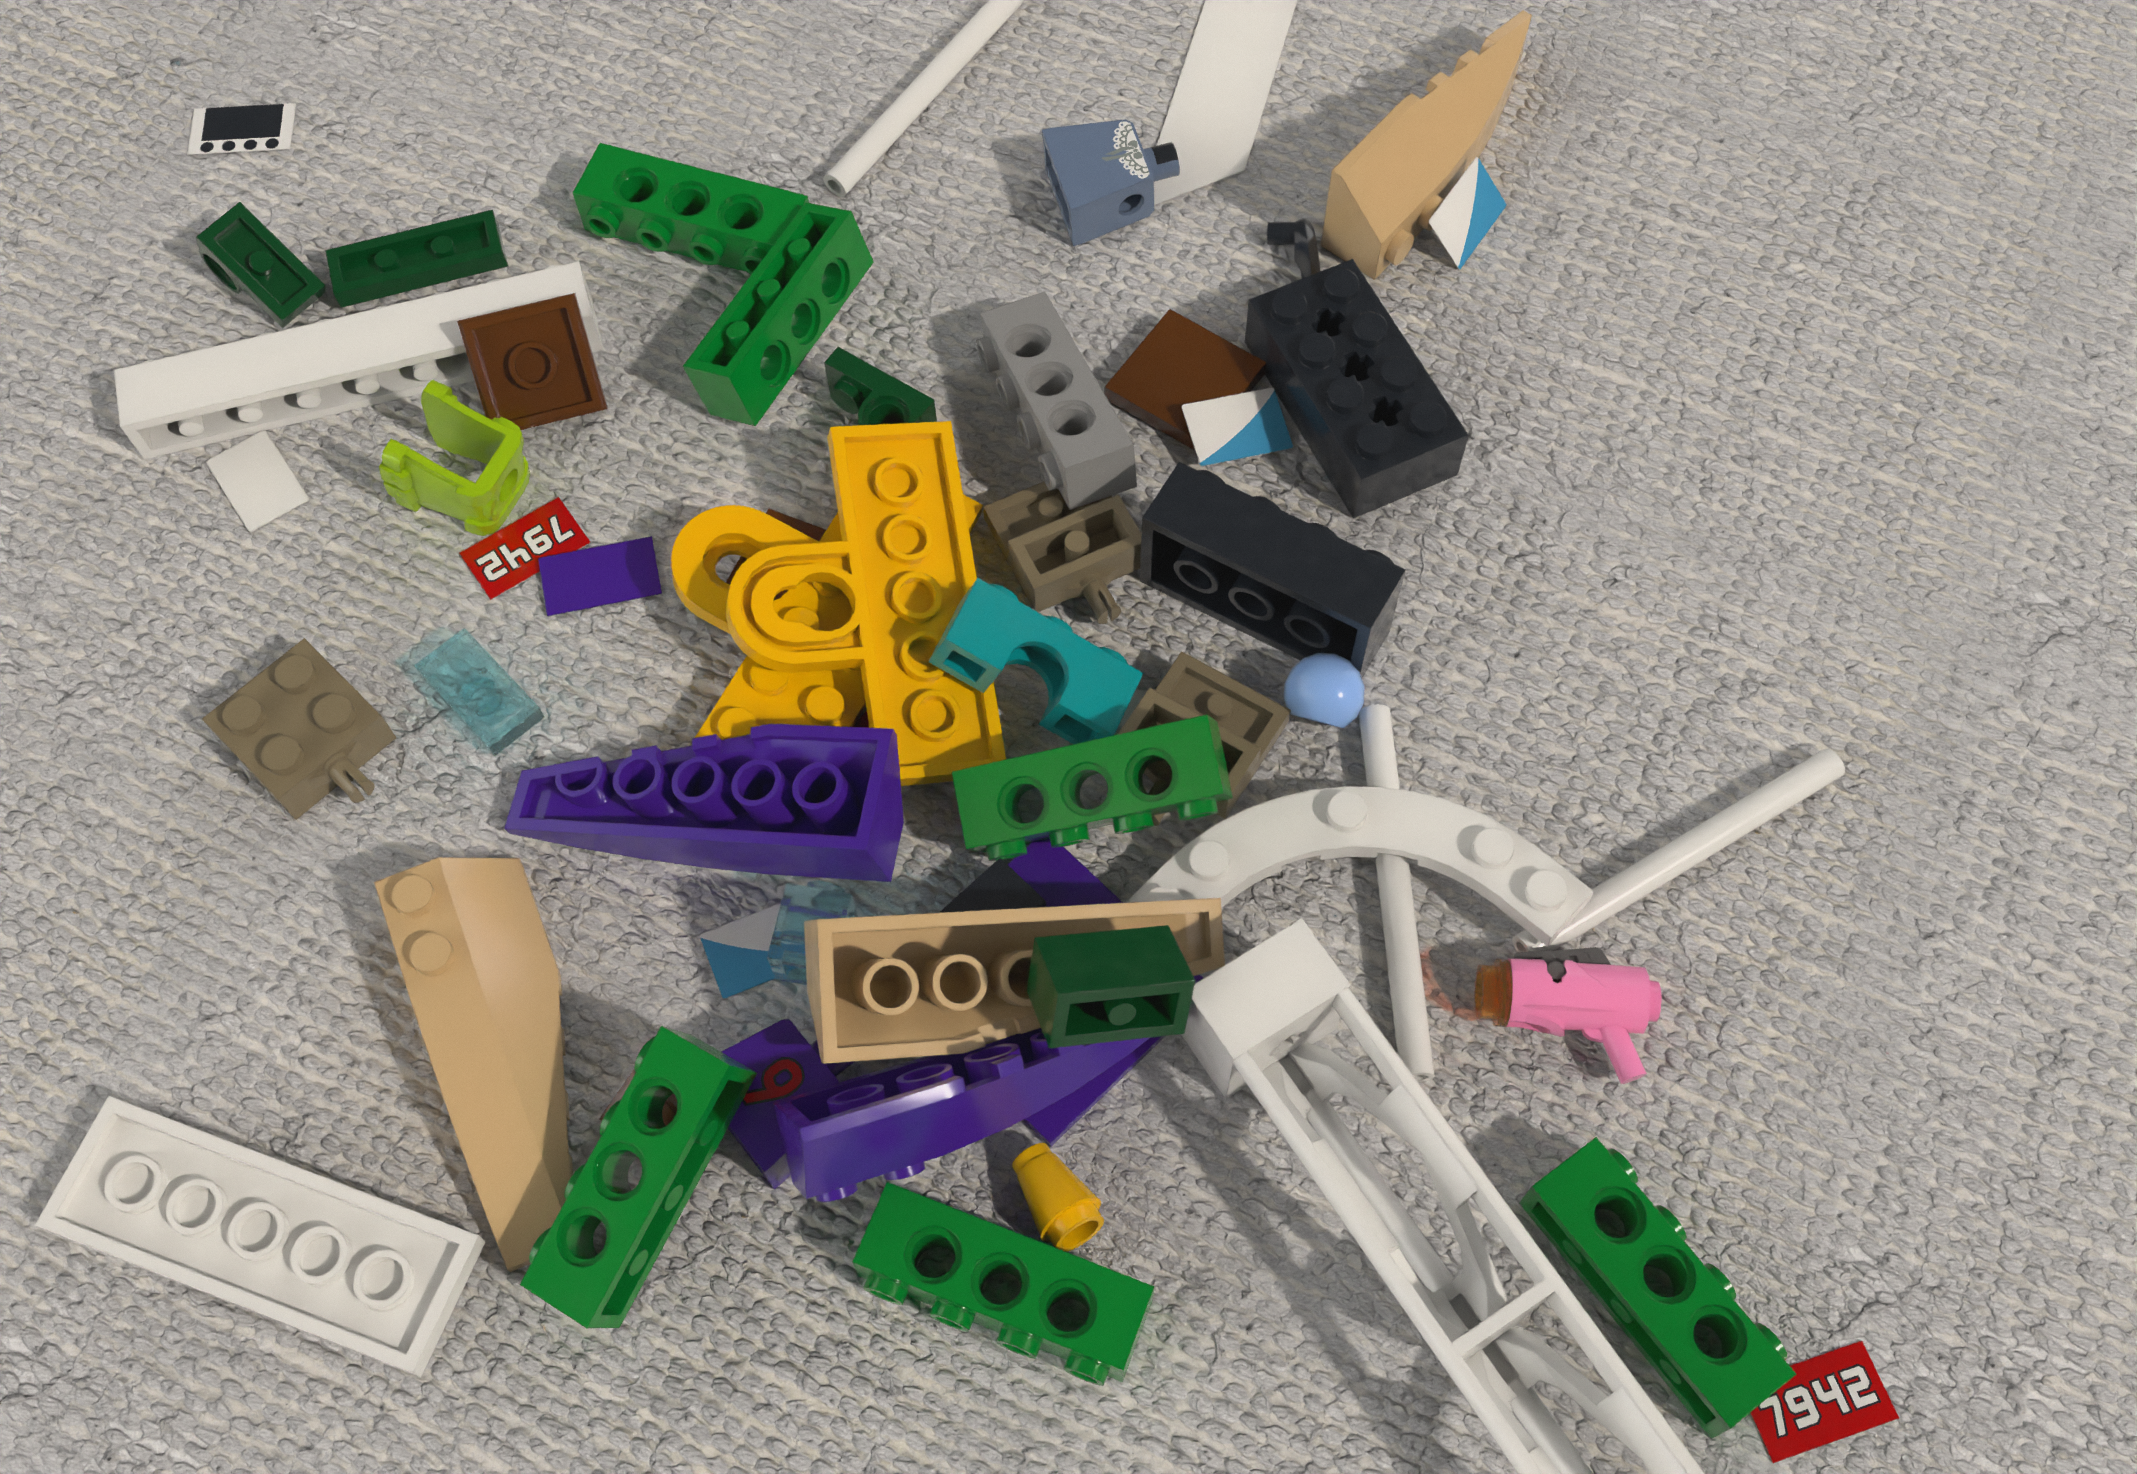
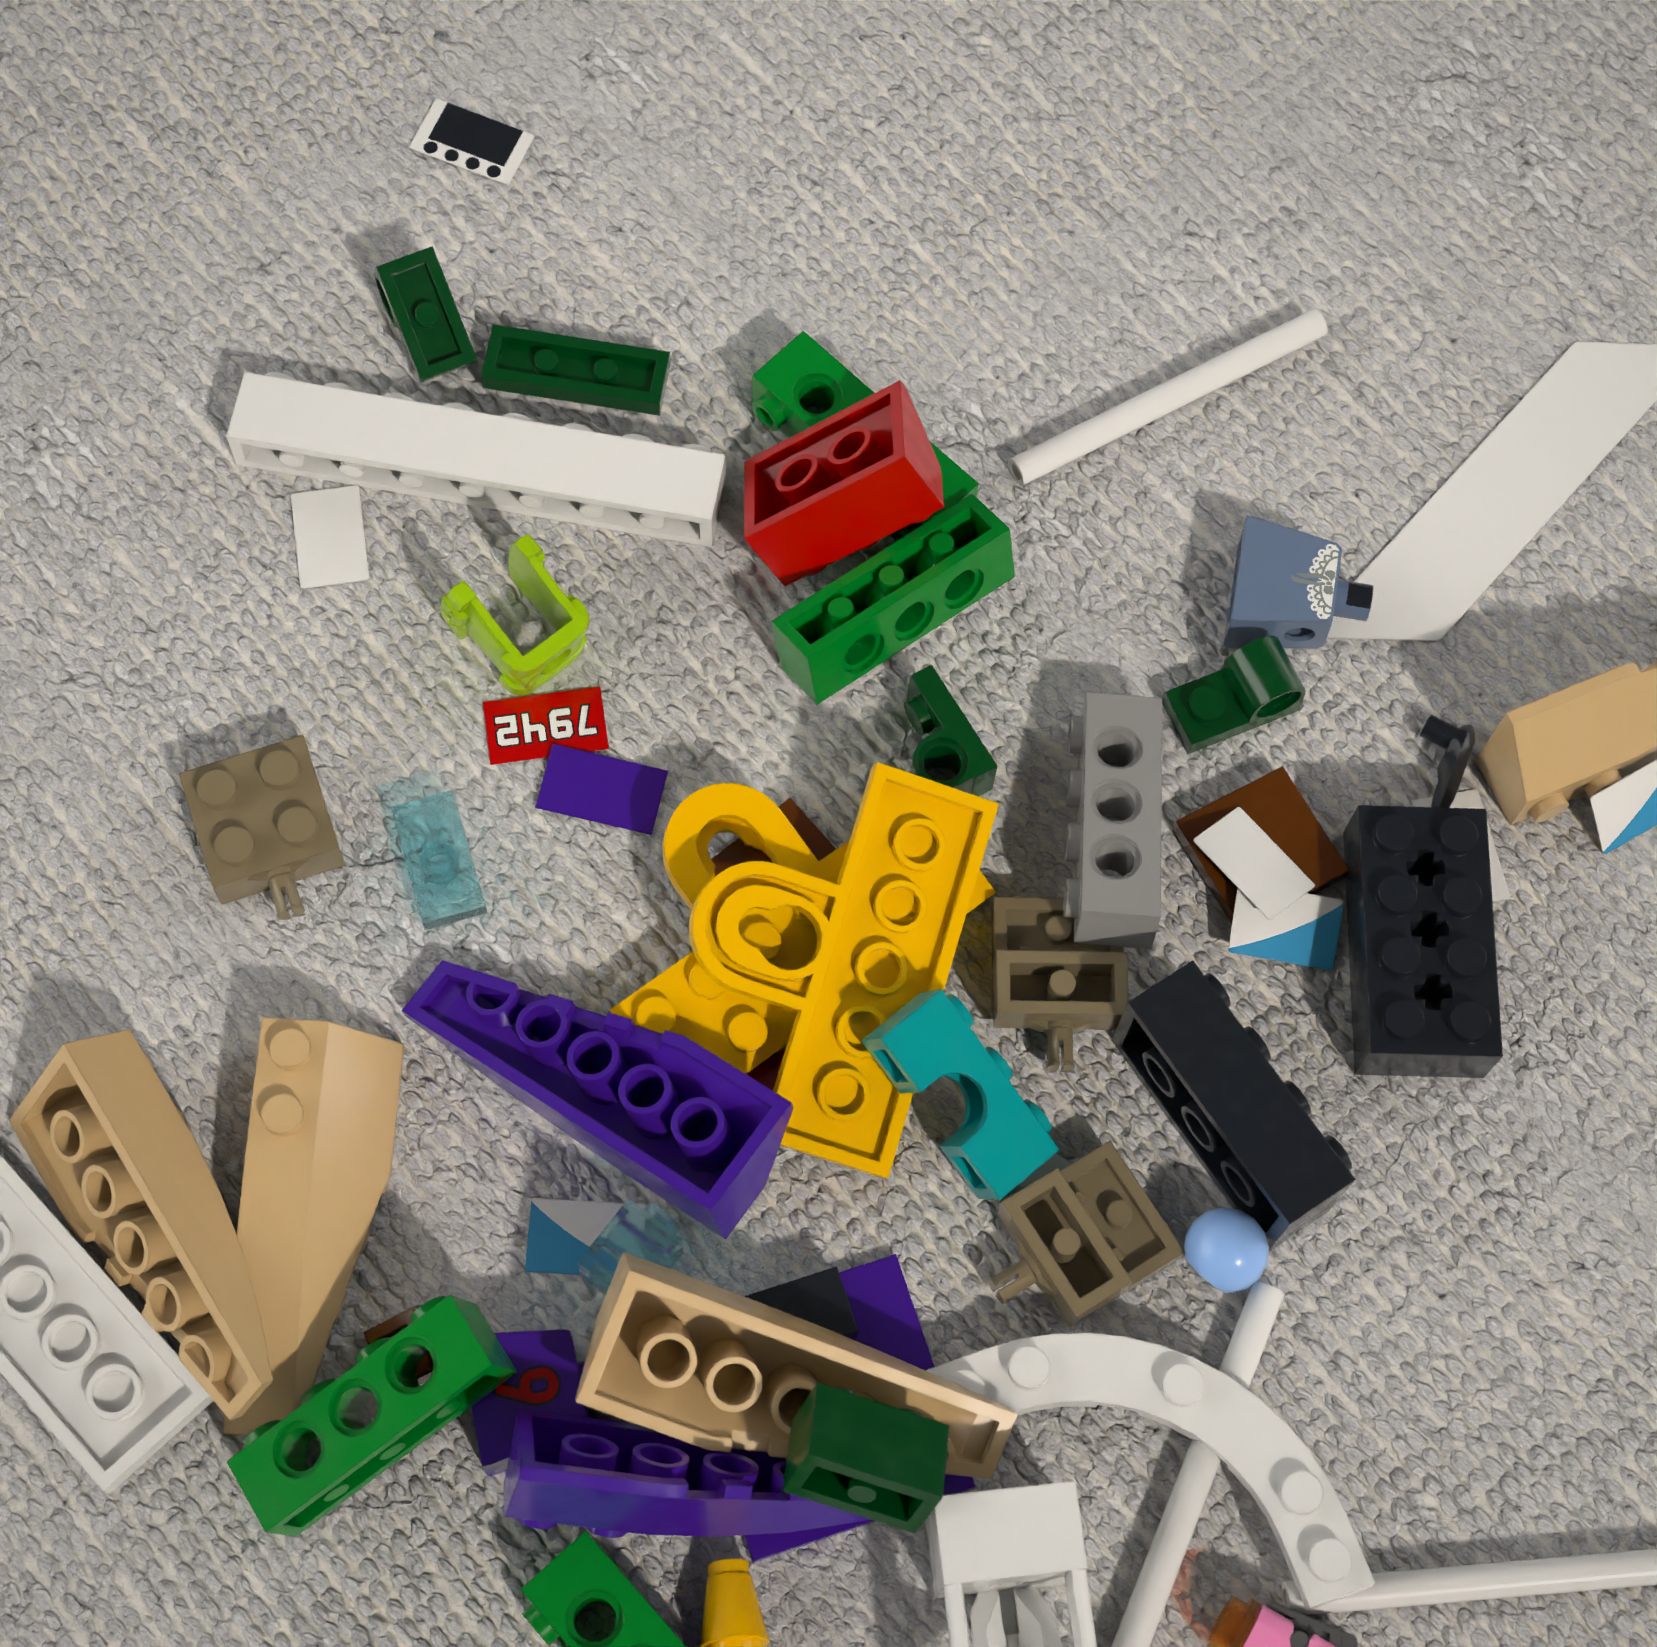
camera: 20 degrees right, 5 degrees up
(337, 1093) = (143, 1193): none -> tan wedge
(534, 362) = (634, 544): reddish brown tile -> none
(691, 241) = (841, 485): none -> red slope
(991, 791) = (1058, 1257): green brick -> none
(1113, 266) = (1247, 693): none -> dark green plate
(1186, 387) = (1254, 863): none -> white sticker

